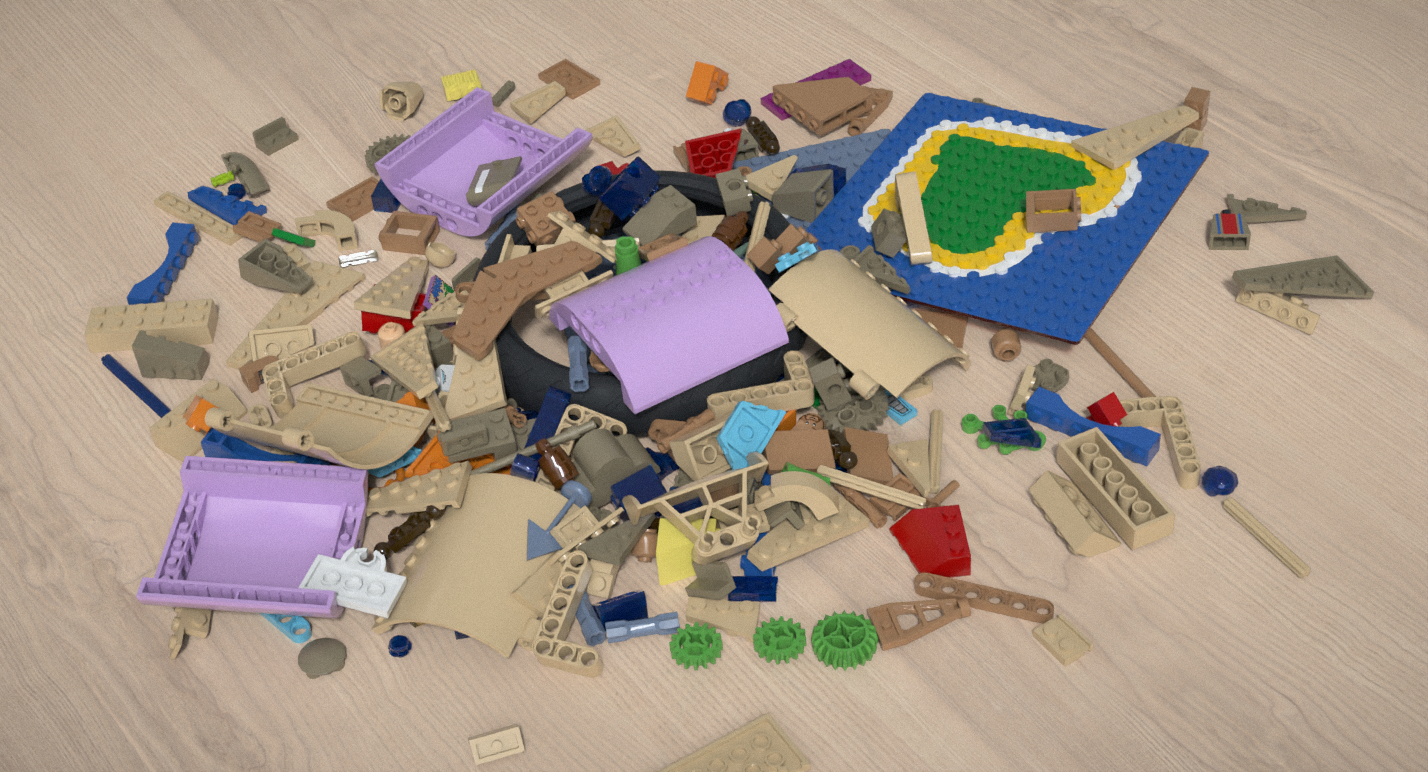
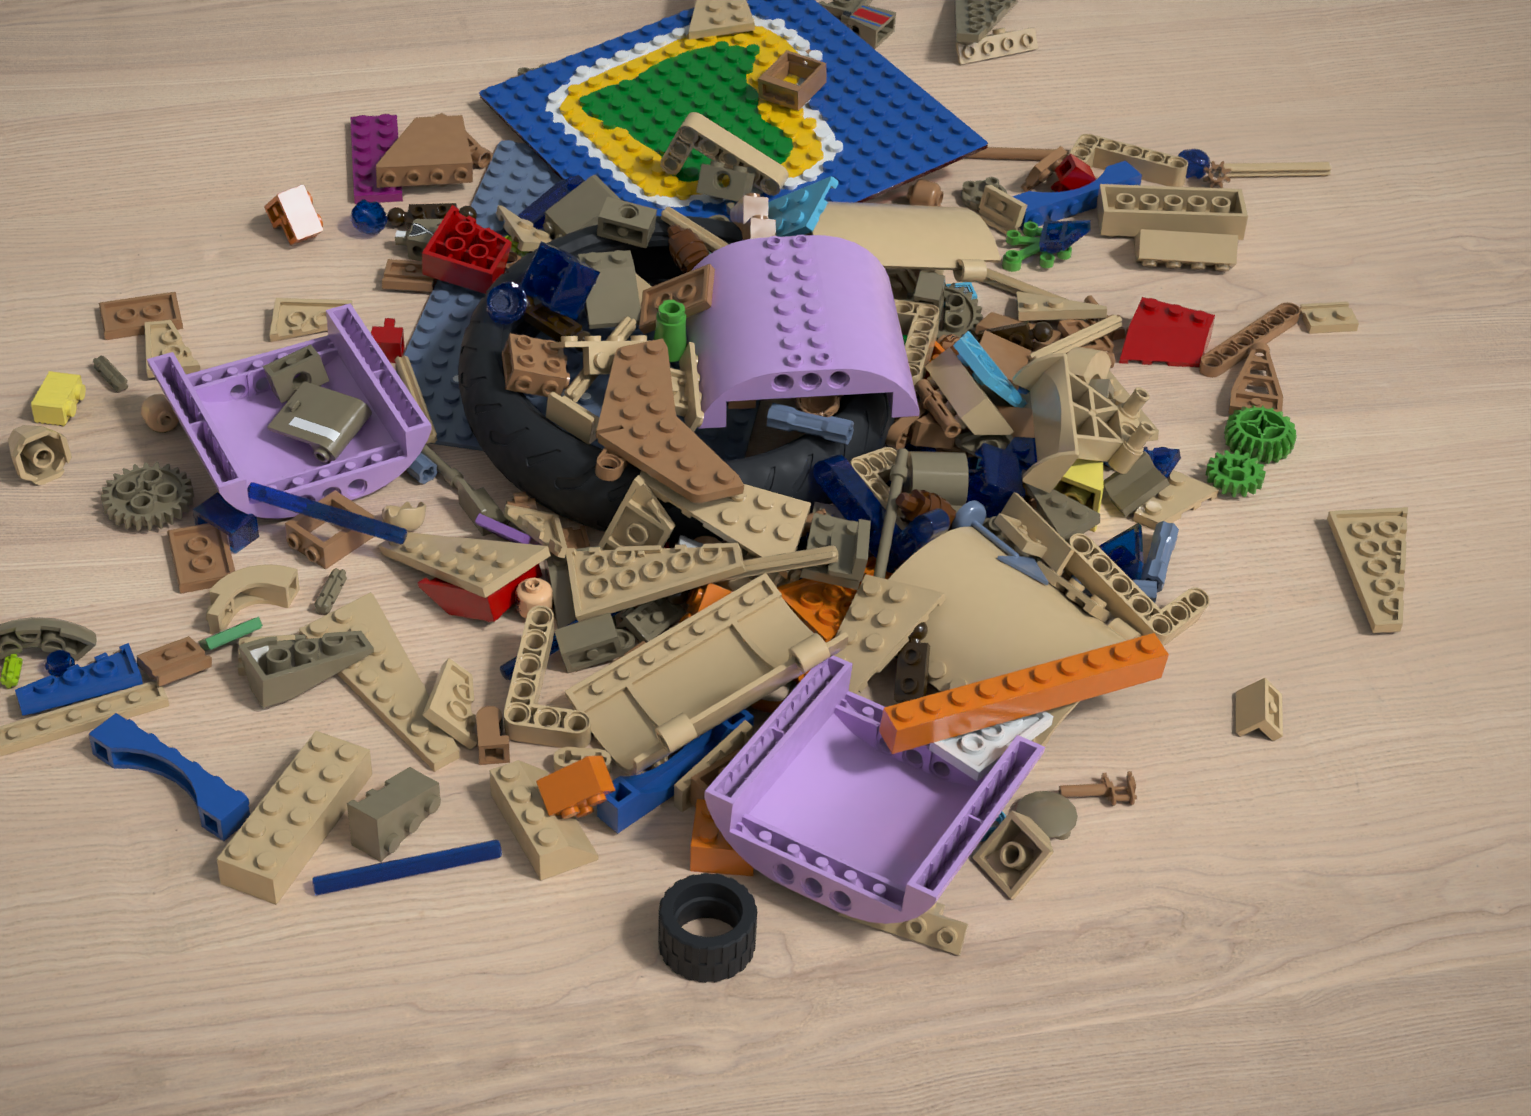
camera: 70 degrees left, 0 degrees up
(132, 541) = (707, 957): none -> black tyre
(271, 649) = (1014, 853): none -> tan slope
(364, 681) = (1103, 789): none -> medium nougat piece
(381, 581) = (1022, 693): none -> orange brick
(399, 646) = (1072, 744): clear blue plate -> none
(402, 220) = (327, 513): none -> clear blue axle
(529, 148) = (282, 371): none -> dark tan brick
(696, 646) = (1210, 528): bright green gear -> none
(1095, 391) = (1044, 169): none -> medium nougat plate
(1207, 499) = (1219, 182): none -> medium nougat gear

